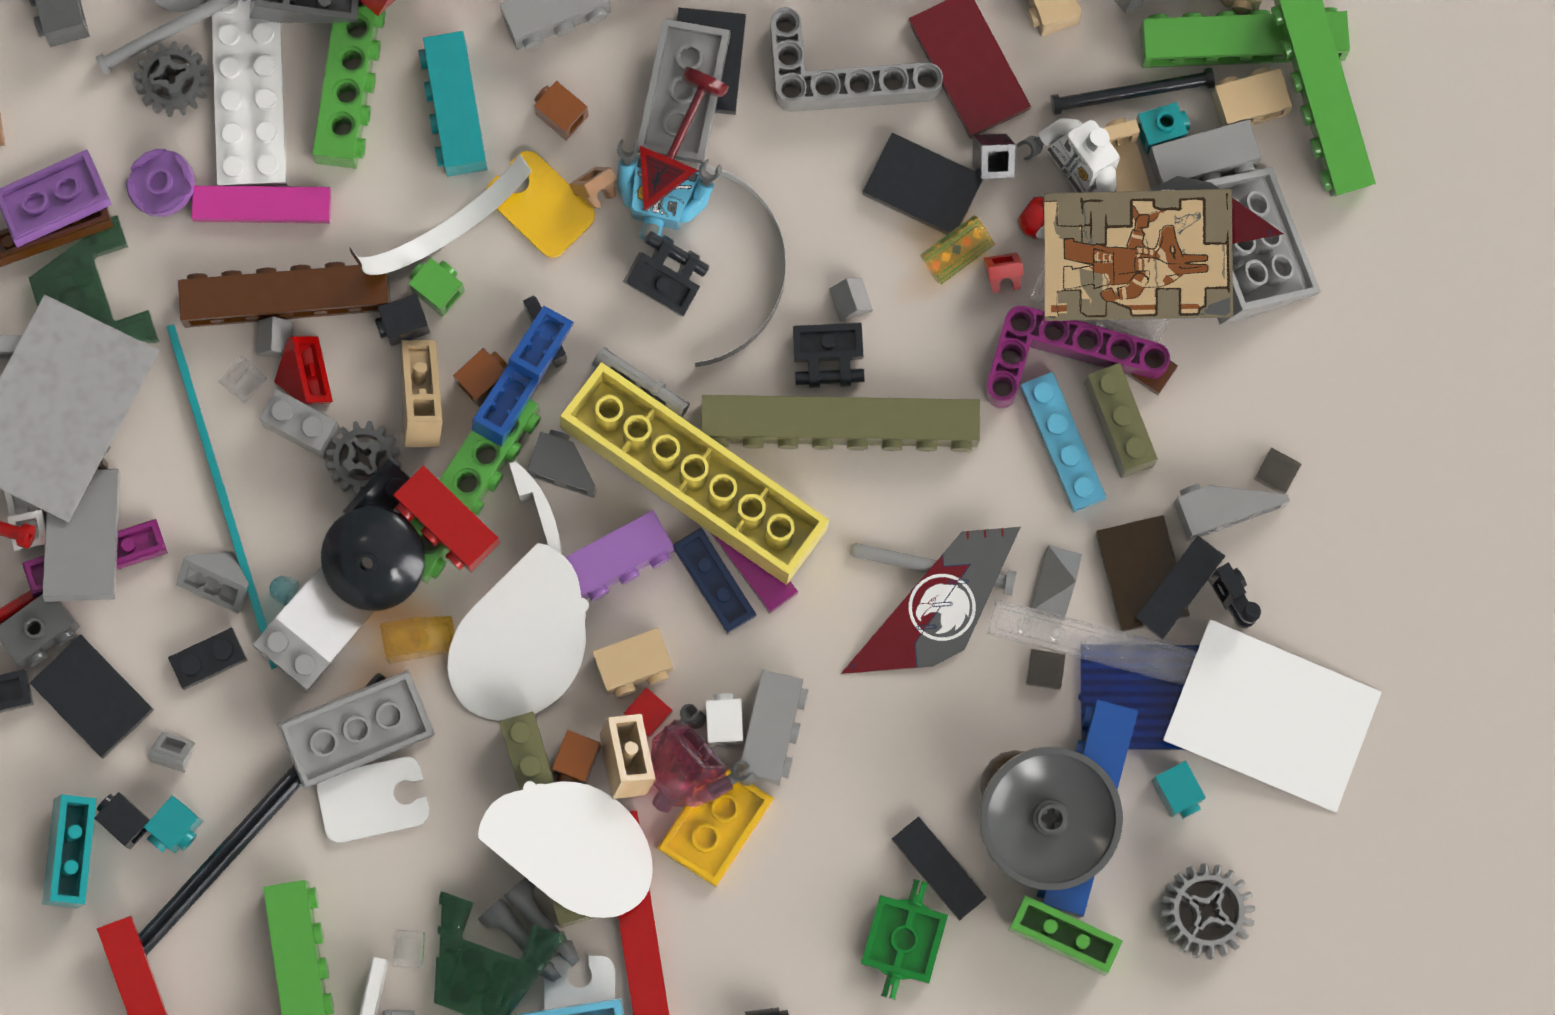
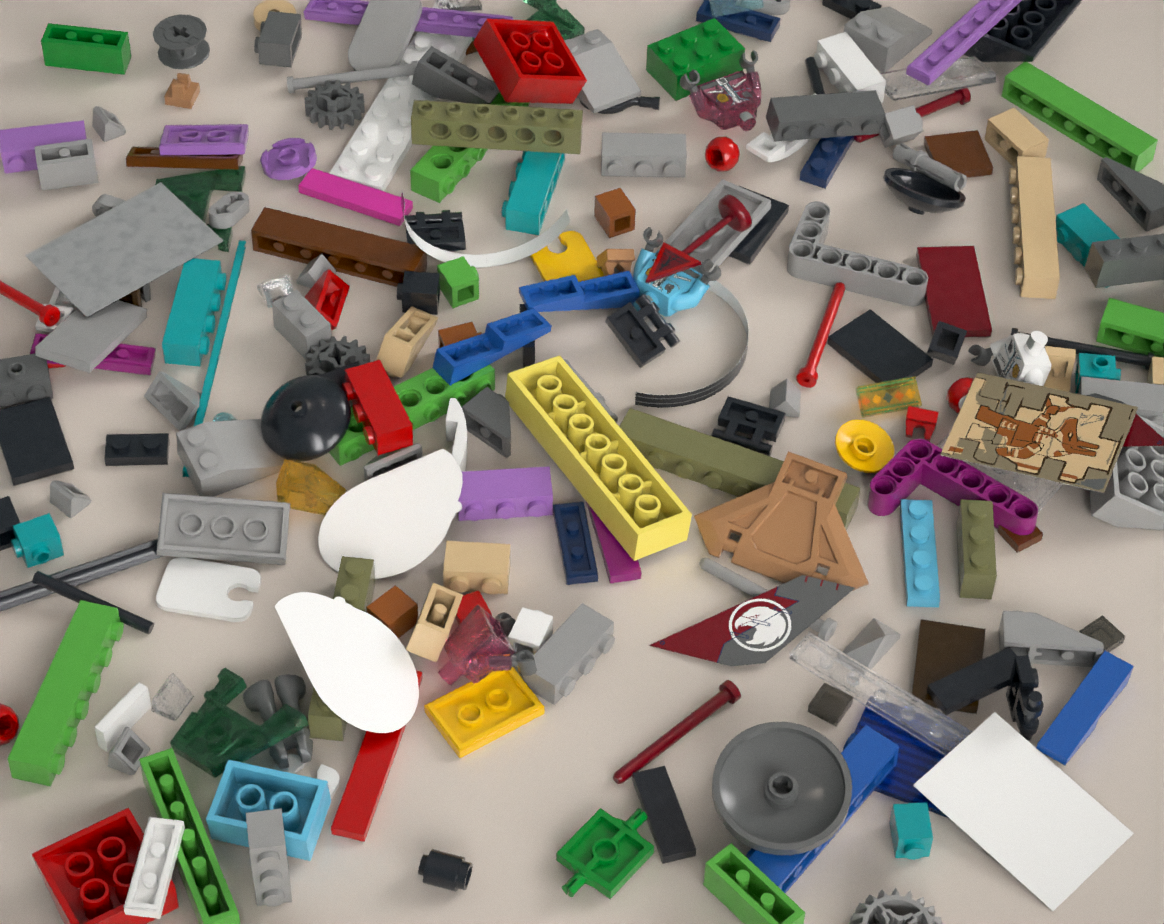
camera: 25 degrees right, 30 degrees down
(141, 291) = (228, 210): none -> light grey beam
(172, 453) = (193, 312): none -> teal brick
(270, 874) = (76, 595): none -> black bar
(380, 229) = (440, 230): none -> black plate
(385, 59) = (496, 127): none -> olive brick
(475, 581) = (391, 460): none -> light grey slope
(579, 253) = (569, 294): none -> blue slope
(862, 255) = (807, 375): none -> red bar
(926, 479) = (787, 526): none -> medium nougat plate
(942, 705) = (728, 693): none -> dark red bar
(972, 325) = (864, 446): none -> yellow dish
(1292, 572) = (1085, 708): none -> blue slope

